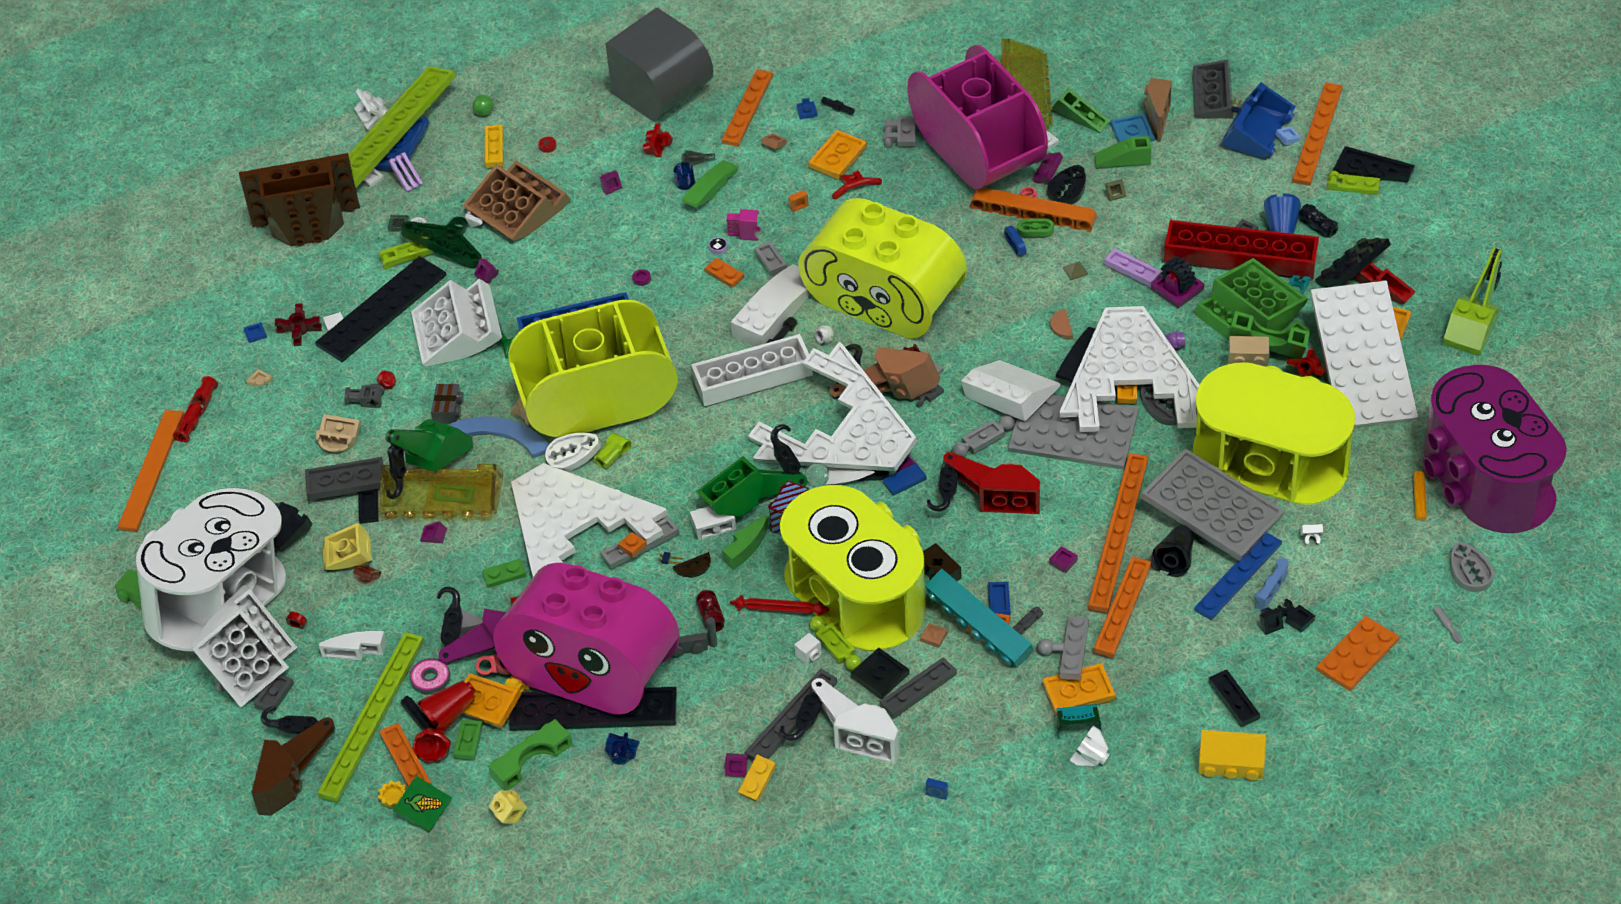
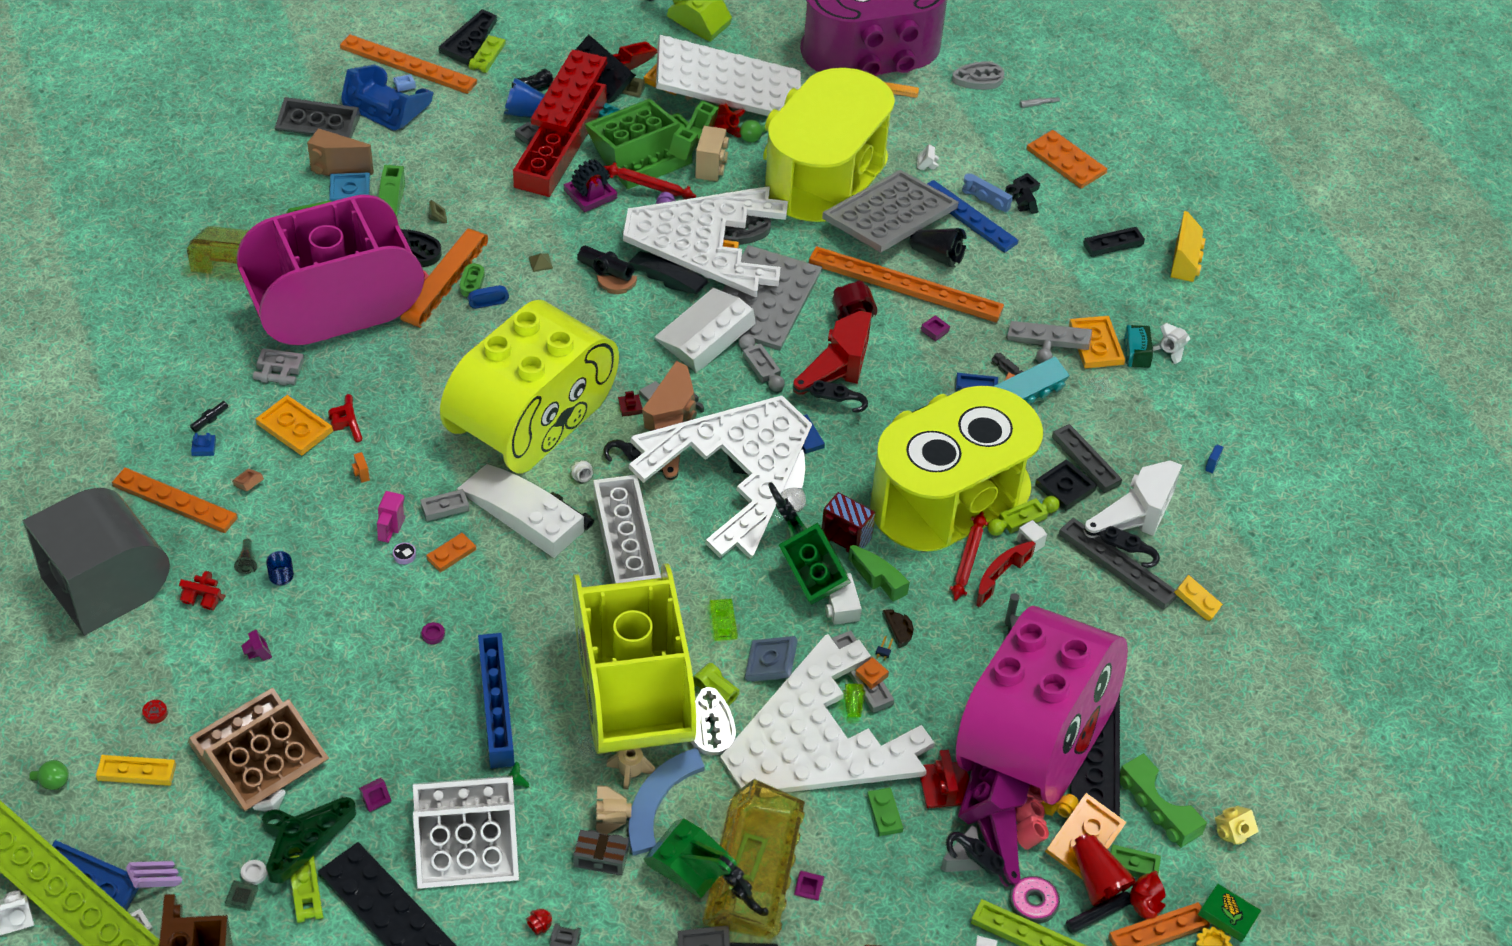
camera: 90 degrees left, 0 degrees up
(481, 400) = (611, 810): none -> tan brick
(607, 537) = (854, 699): none -> clear neon green cone
(621, 748) = (1156, 713): clear blue piece -> none
(641, 480) = (771, 659): none -> sand blue tile
(683, 449) = (723, 619): none -> clear neon green plate
(707, 601) = (978, 614): dark red piece -> none
(709, 183) = (301, 545): bright green slope -> none
(736, 764) = (1178, 614): magenta tile -> none
(742, 618) = (1016, 555): none -> red slope
(1067, 488) = (853, 298): none -> dark red brick
(1077, 308) = (605, 263): none -> black piece
(1122, 607) = (1012, 300): orange plate -> none
(1132, 267) = (554, 218): lavender plate -> none
(1196, 322) = (650, 182): none -> red wheel
(1292, 236) = (569, 91): none -> red plate

